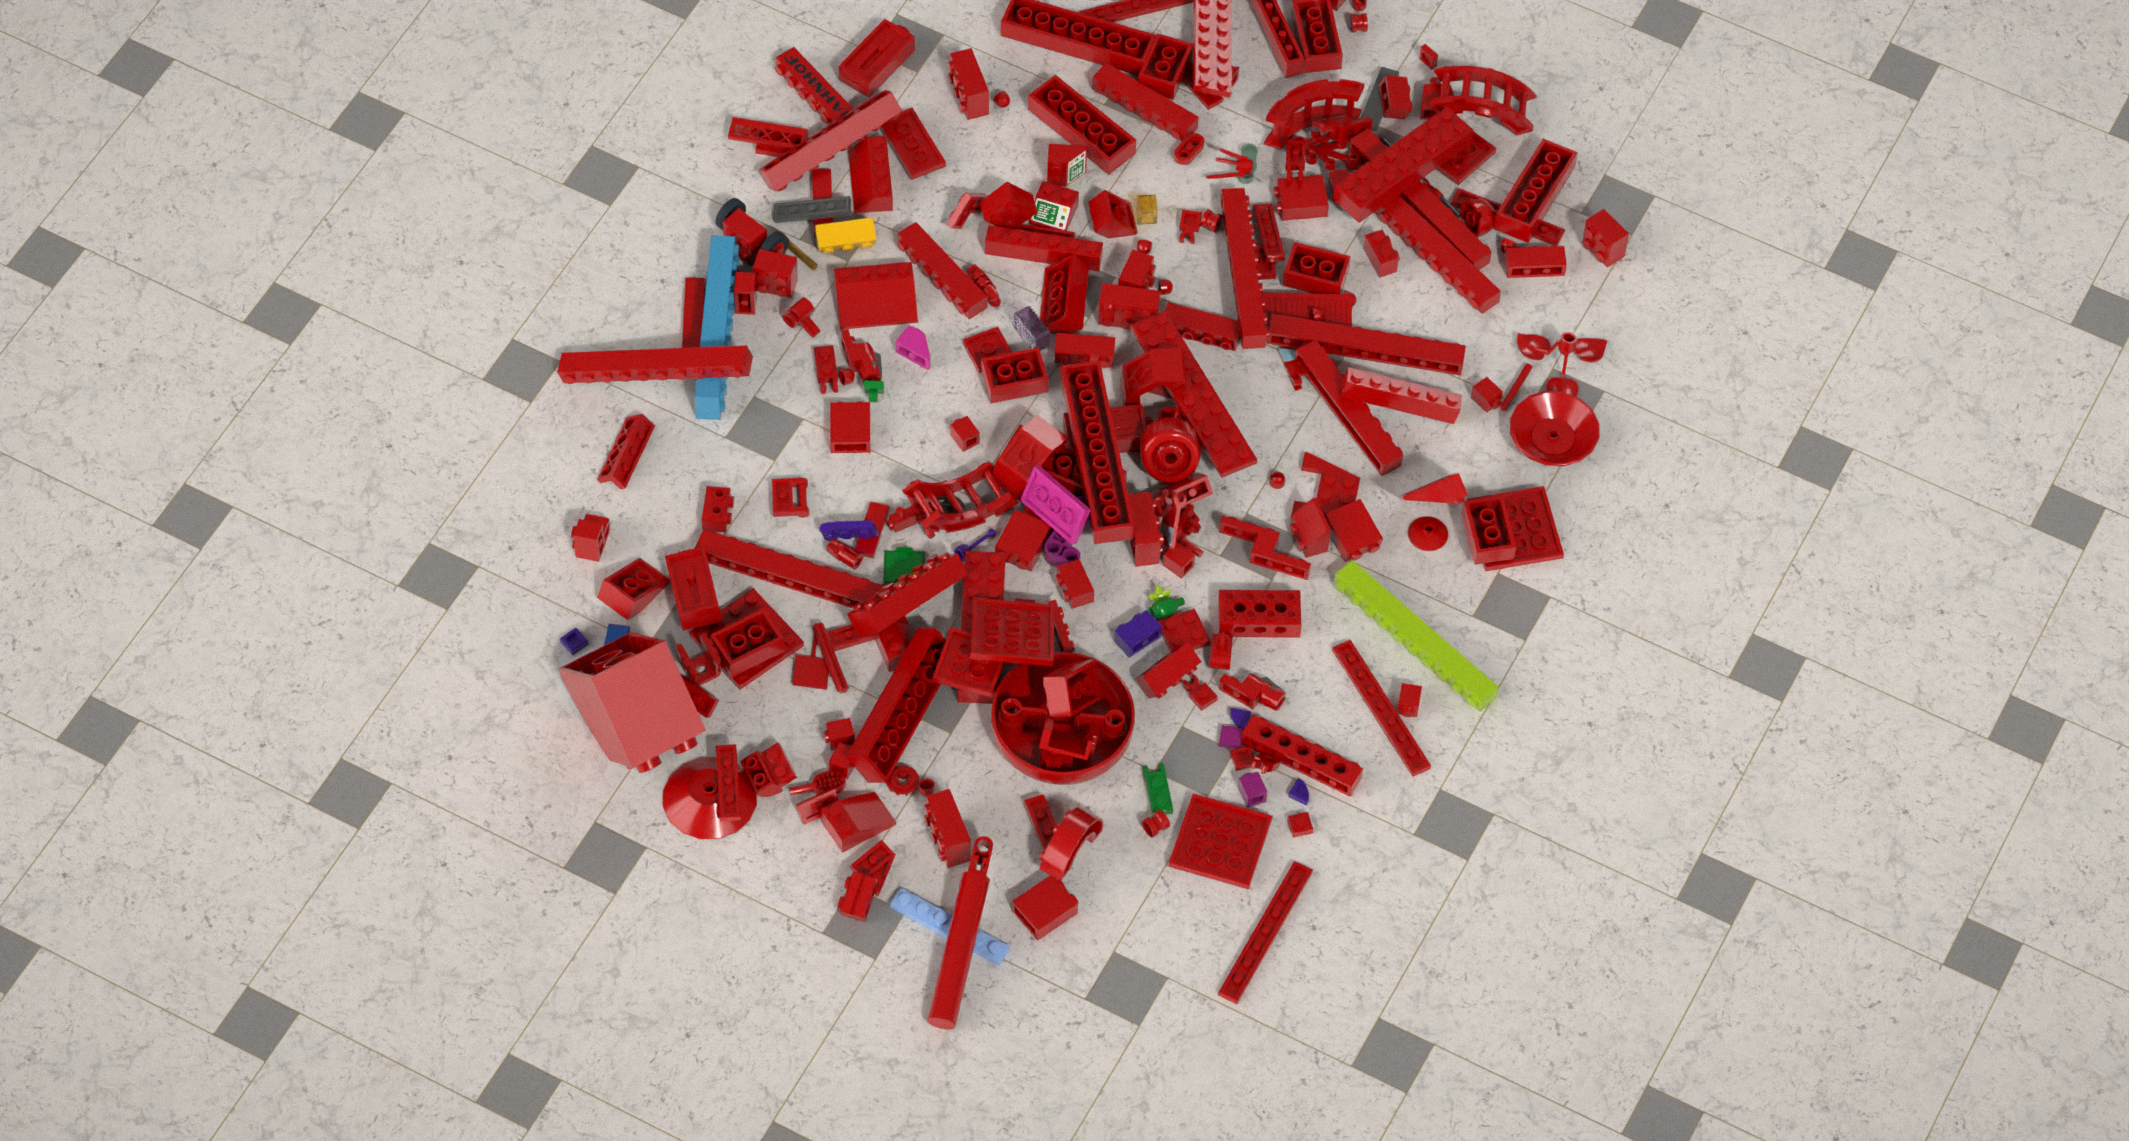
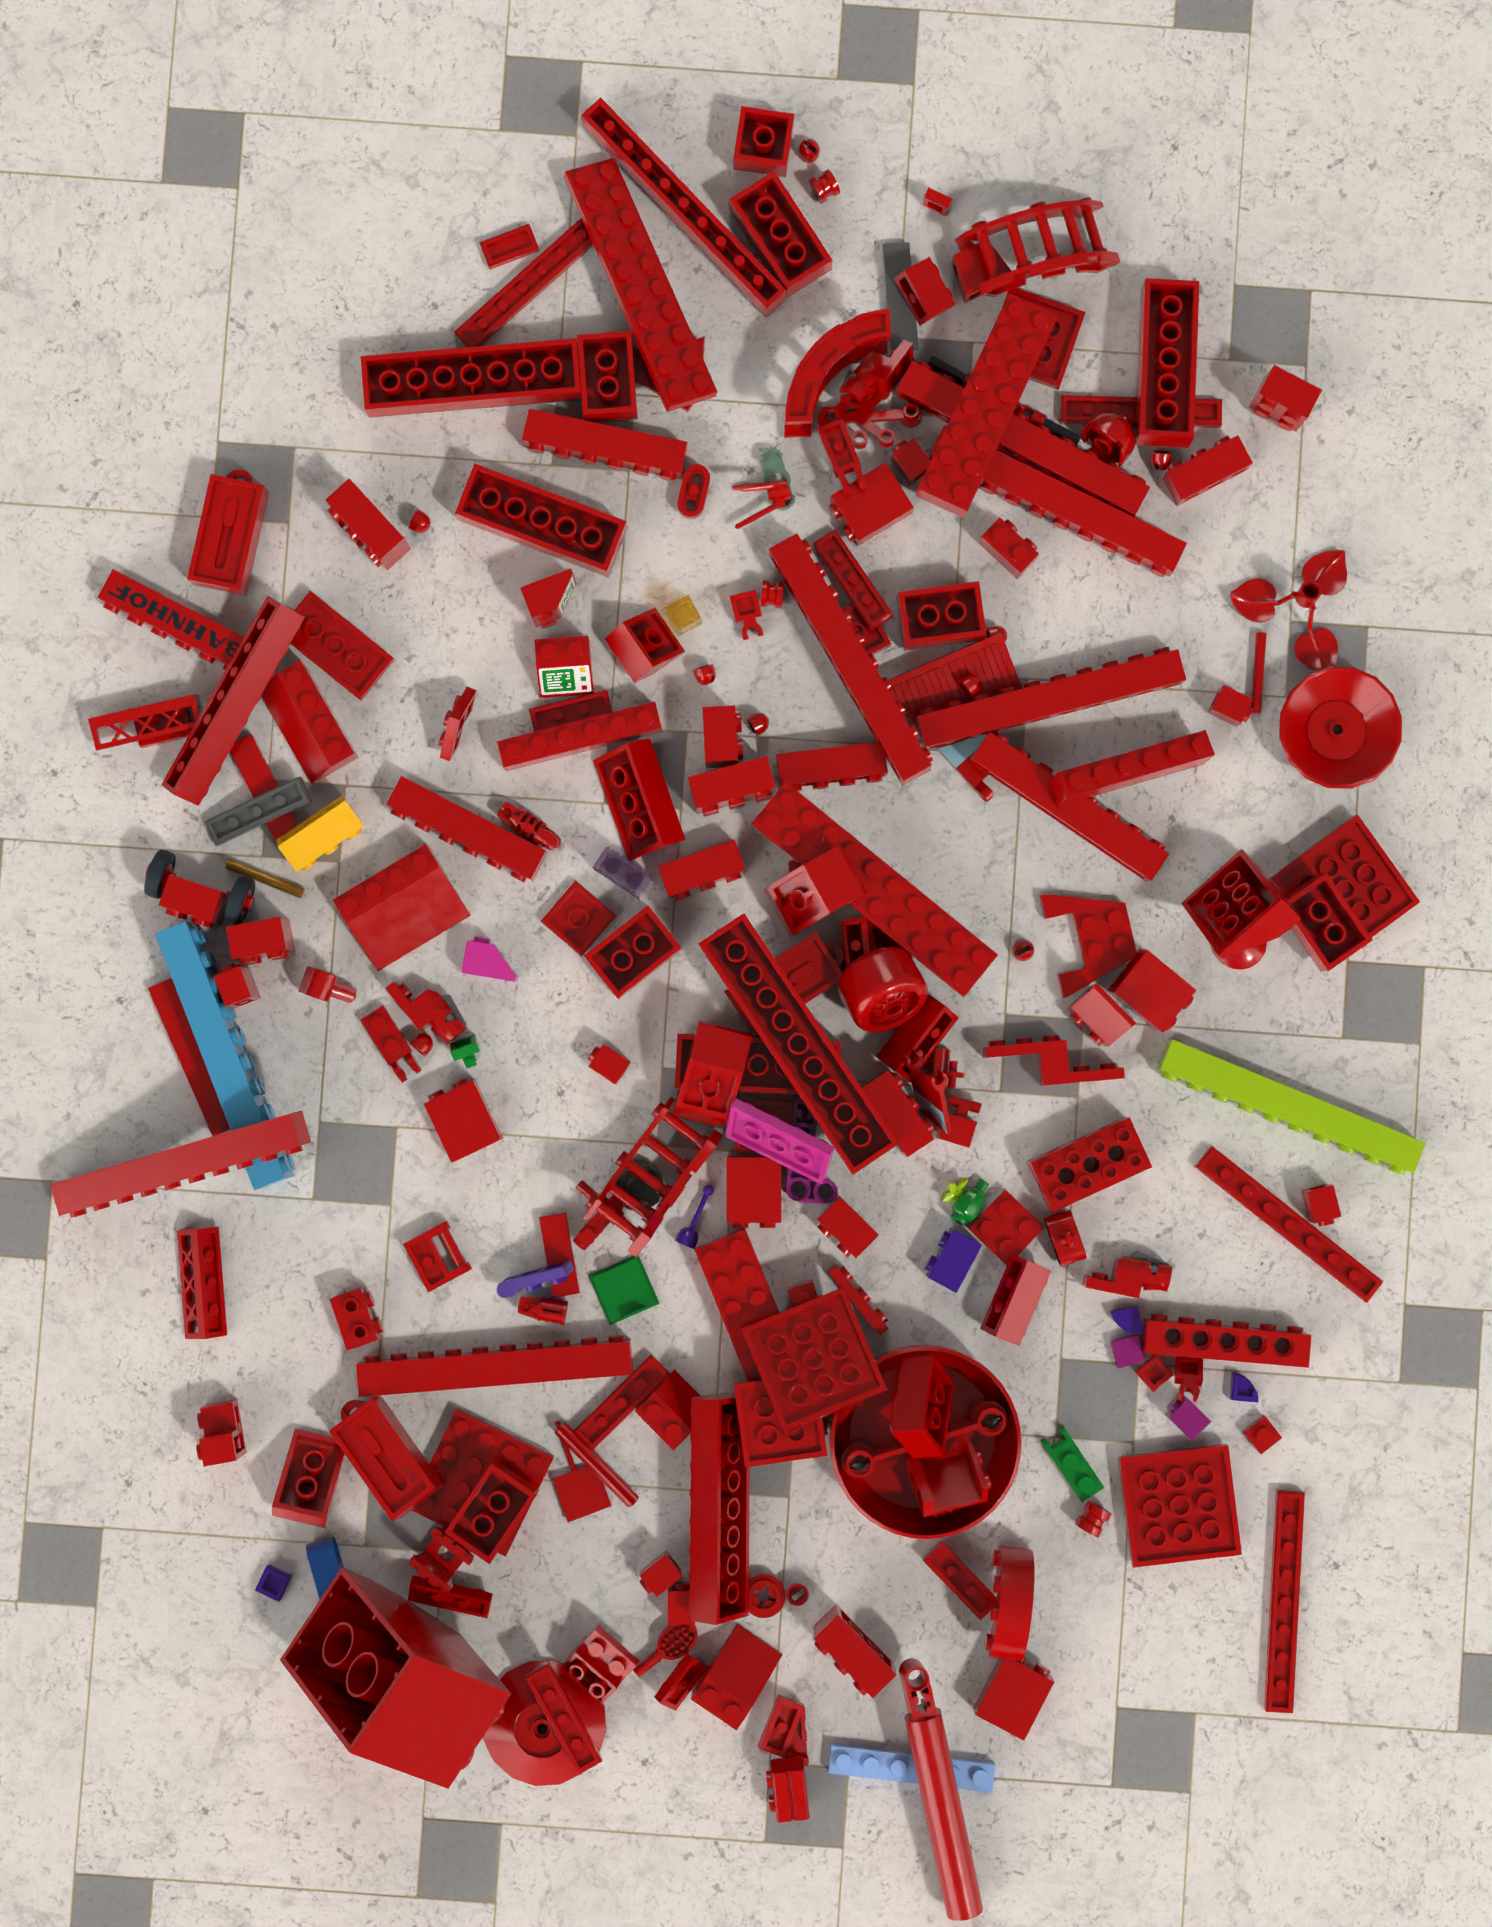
camera: 25 degrees left, 30 degrees up
(907, 593) = (656, 1355): red brick -> none
(1008, 206) = (511, 705): red brick -> none
(1201, 694) = (1066, 1305): red plate -> none

